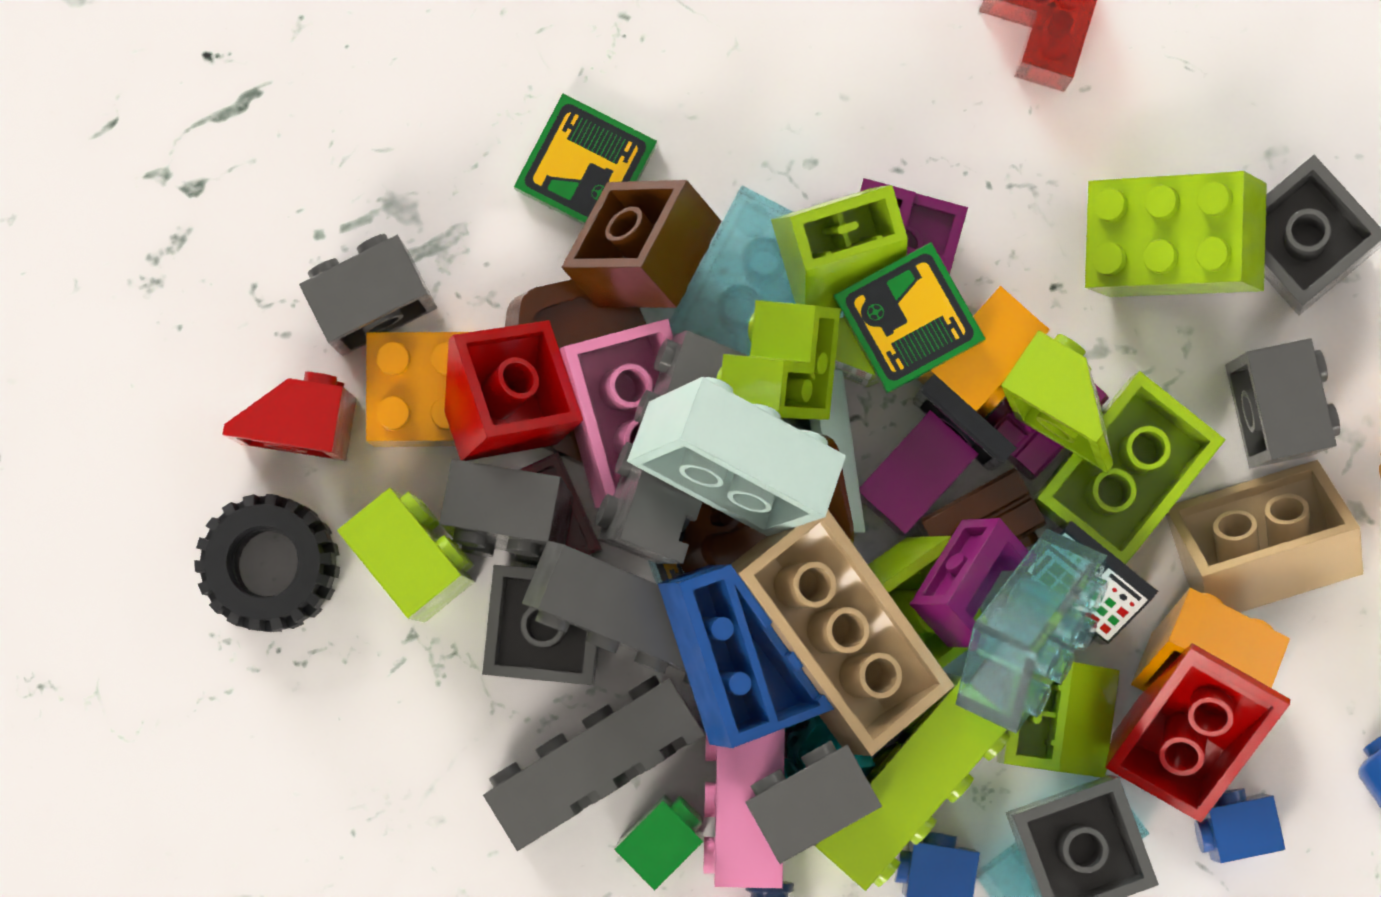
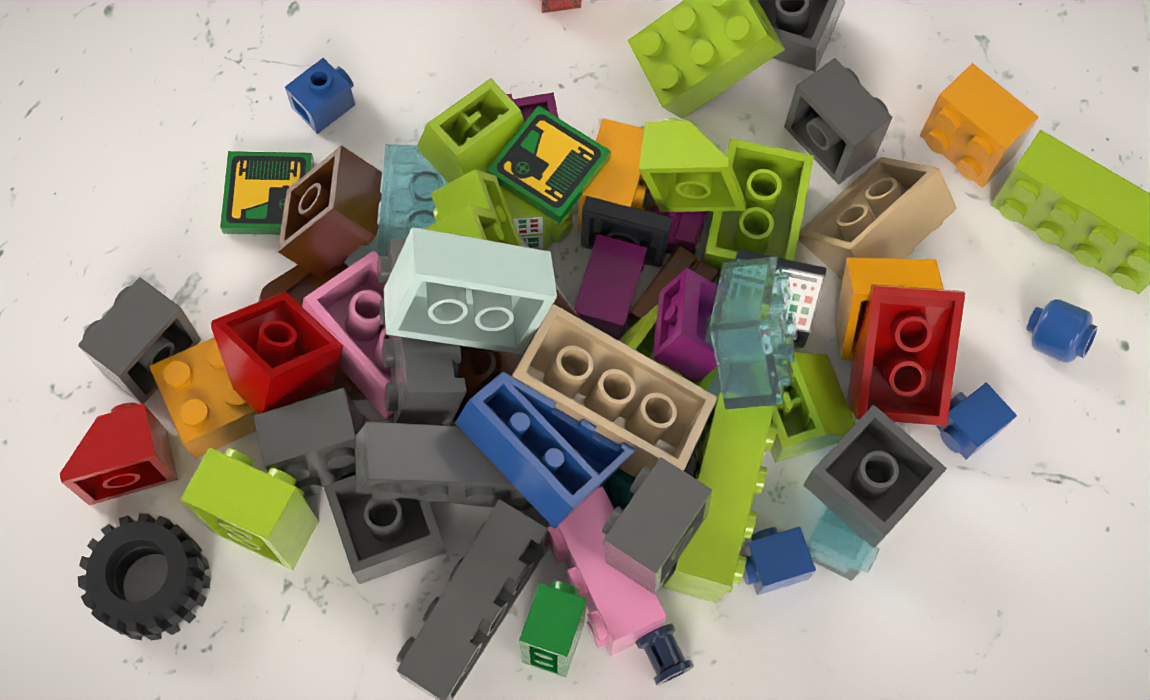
camera: 30 degrees left, 15 degrees down
(701, 72) = (321, 94): none -> blue brick

